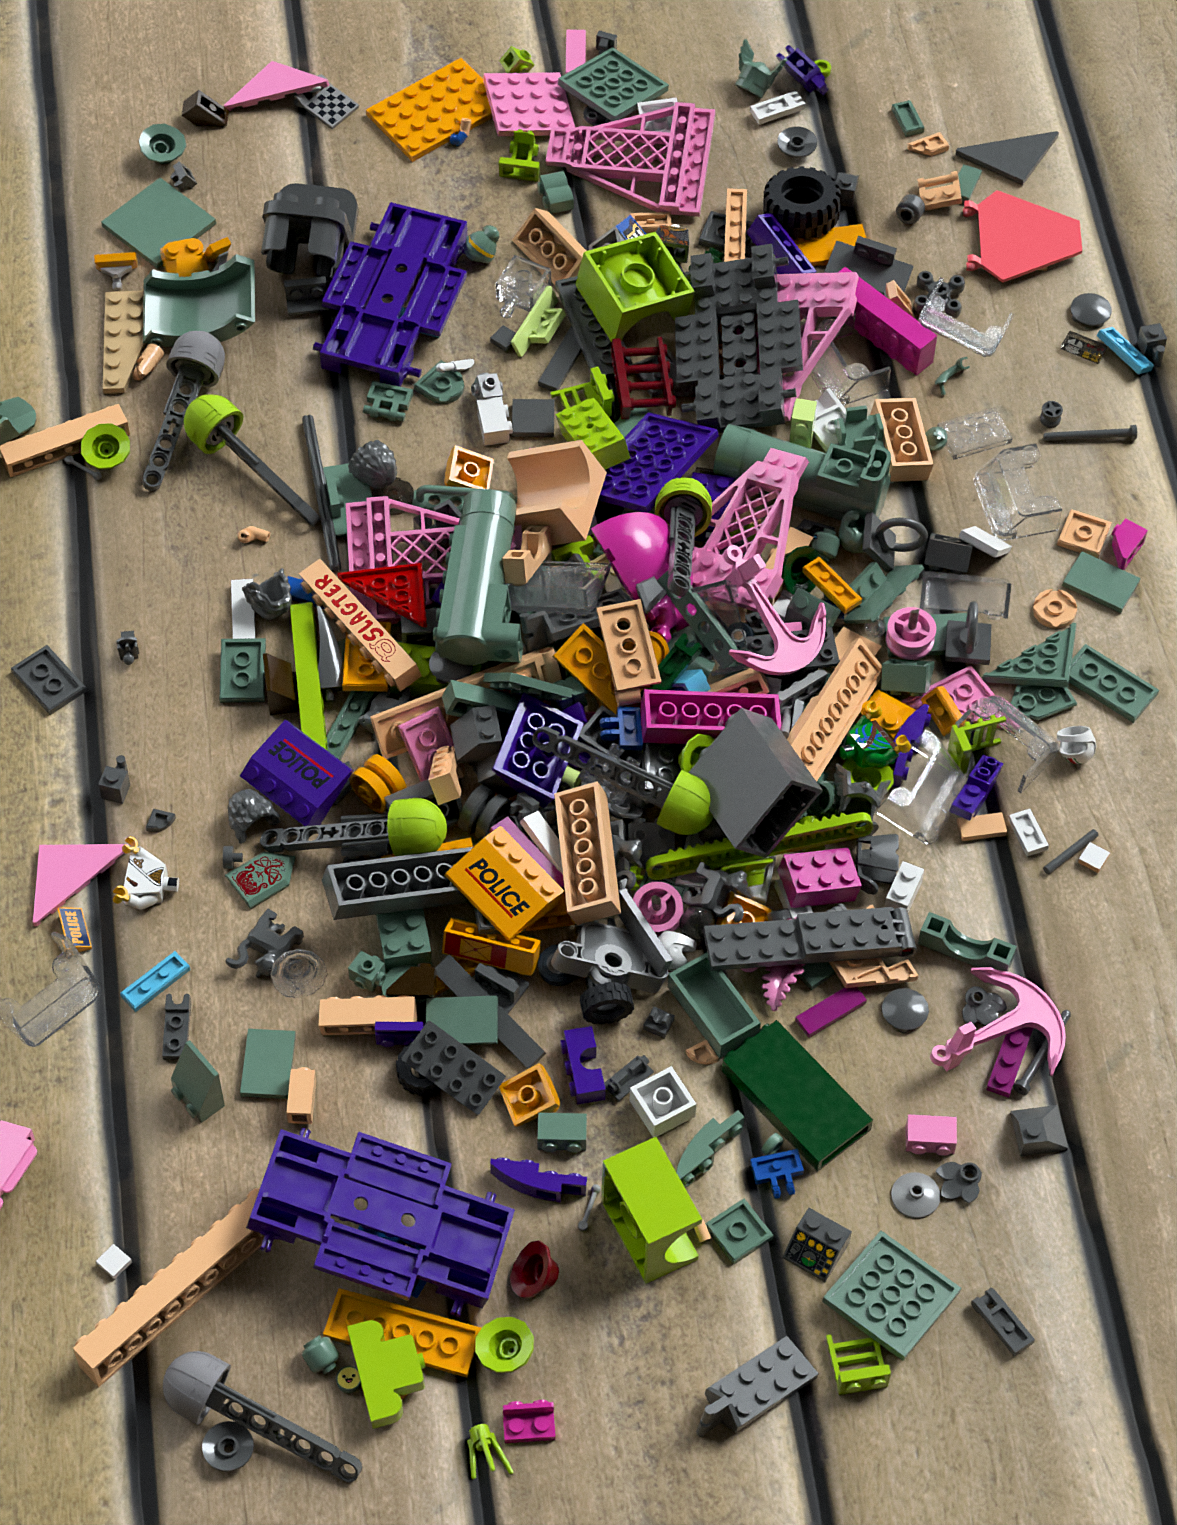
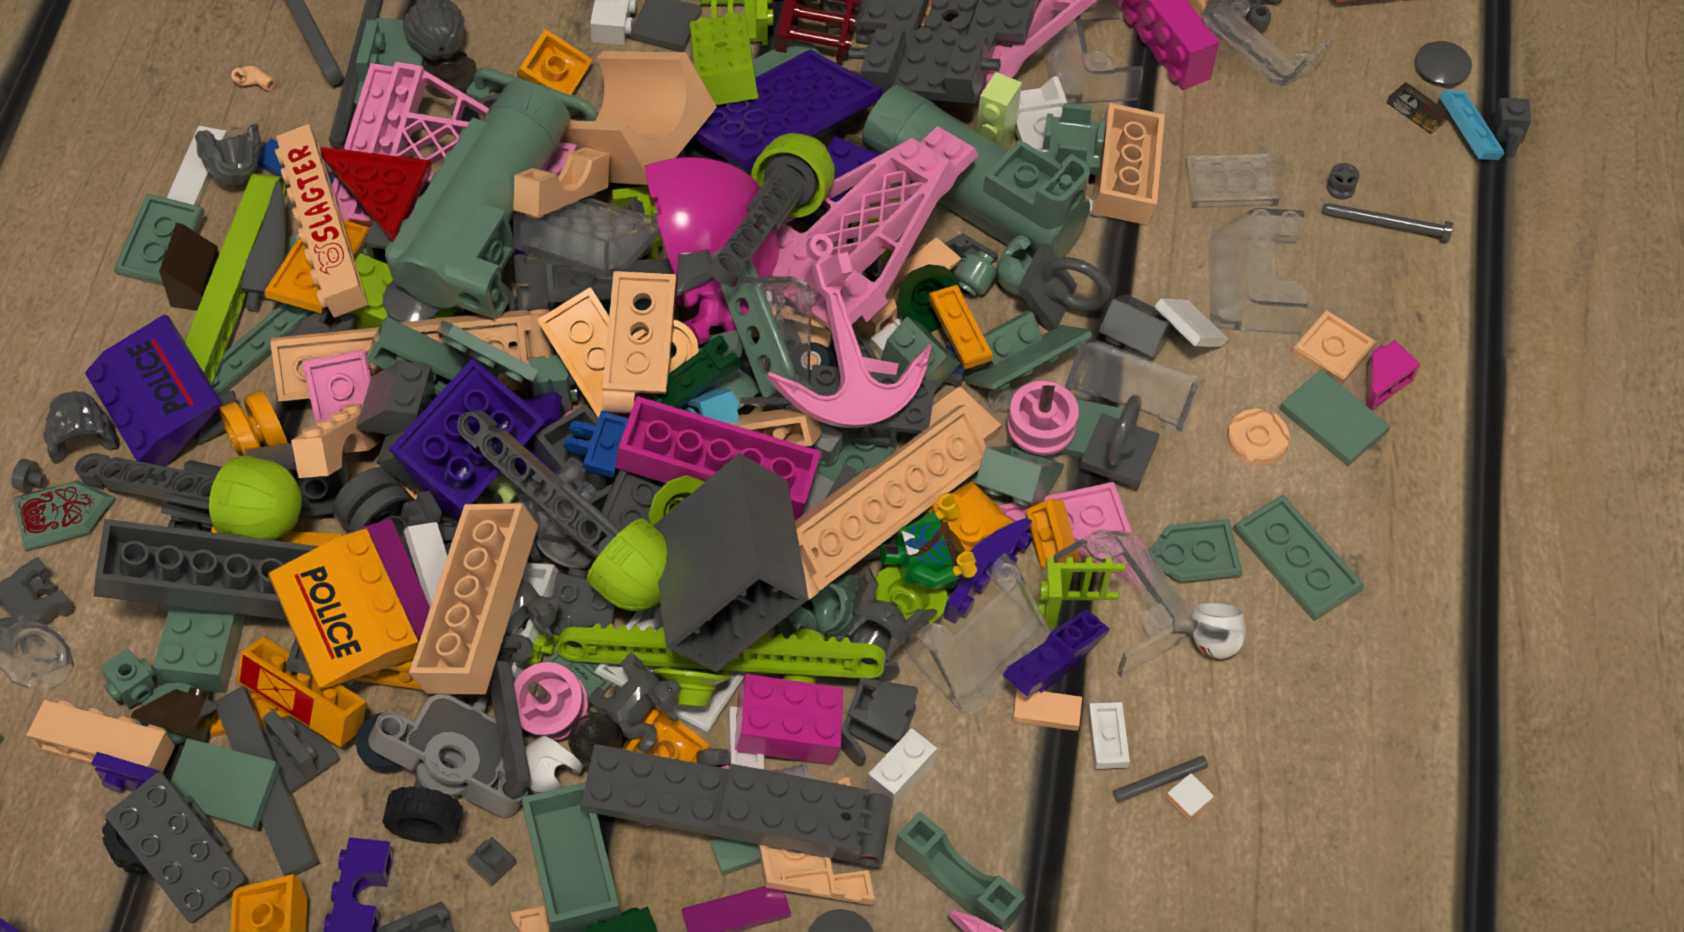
camera: 15 degrees right, 0 degrees up
(128, 647) = (32, 174): dark grey piece -> none
(778, 983) = (674, 850): bright pink plant -> none
(786, 721) = (817, 494): light grey bar -> none
(803, 689) = (858, 455): light grey plate -> none
(936, 438) = (1175, 174): sand green hat -> none
(949, 372) = (1225, 97): sand green piece -> none
(1040, 664) = (1210, 507): sand green tile -> none

